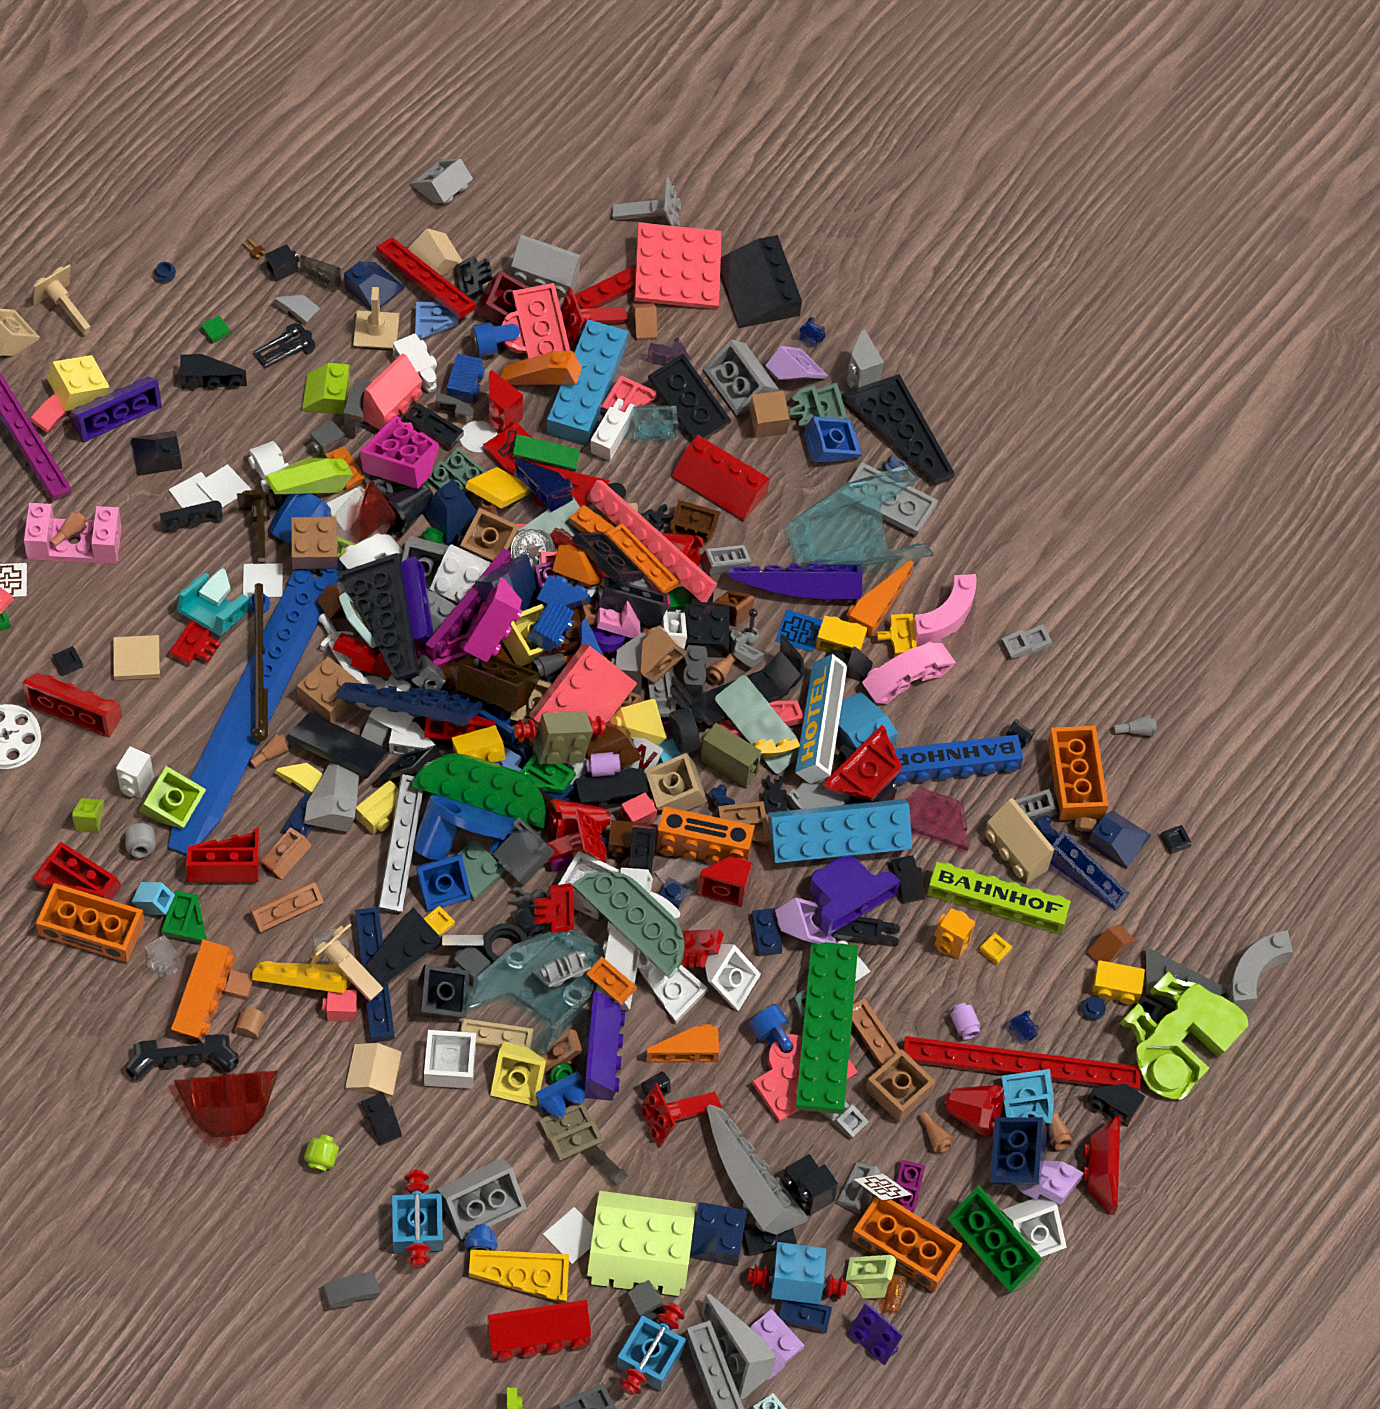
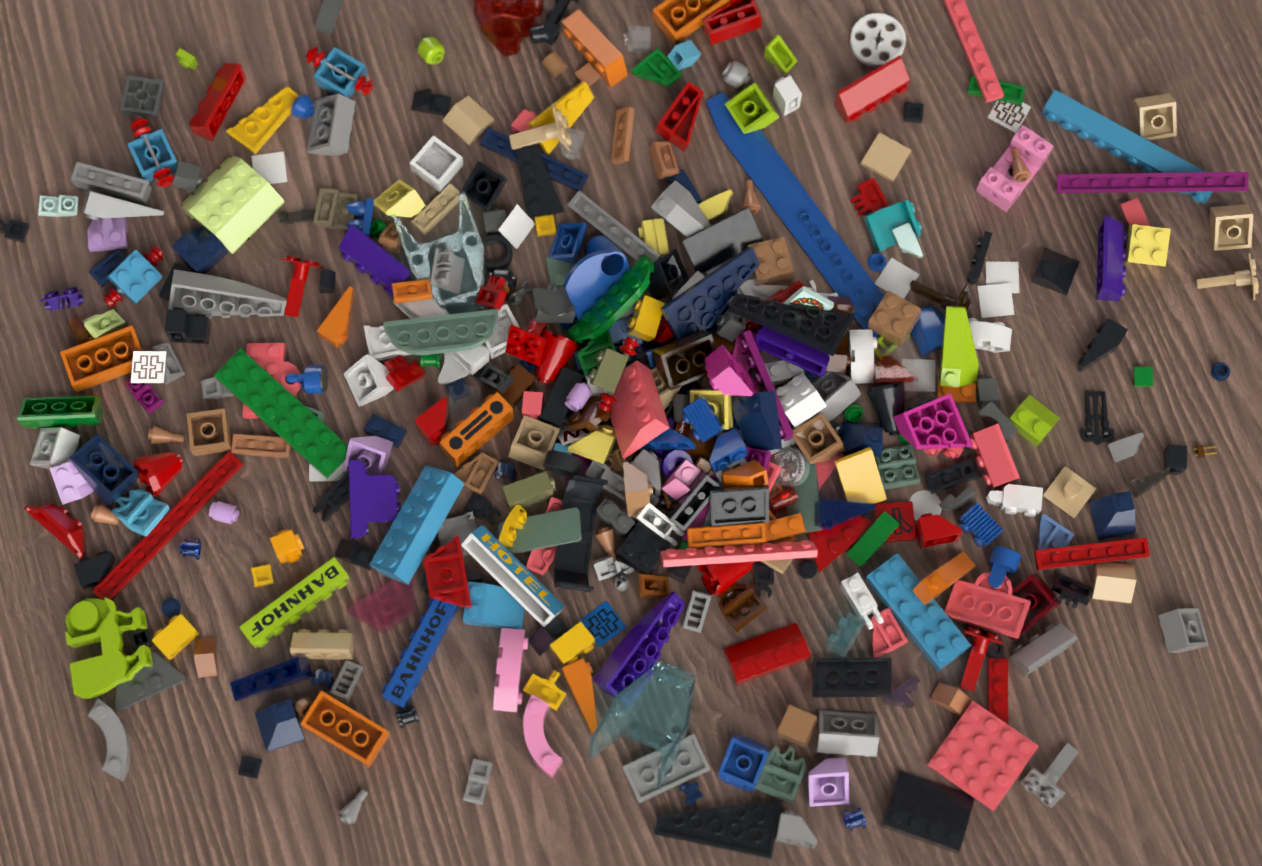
camera: 130 degrees right, 15 degrees up
(261, 695) = (796, 213): dark brown bar -> none

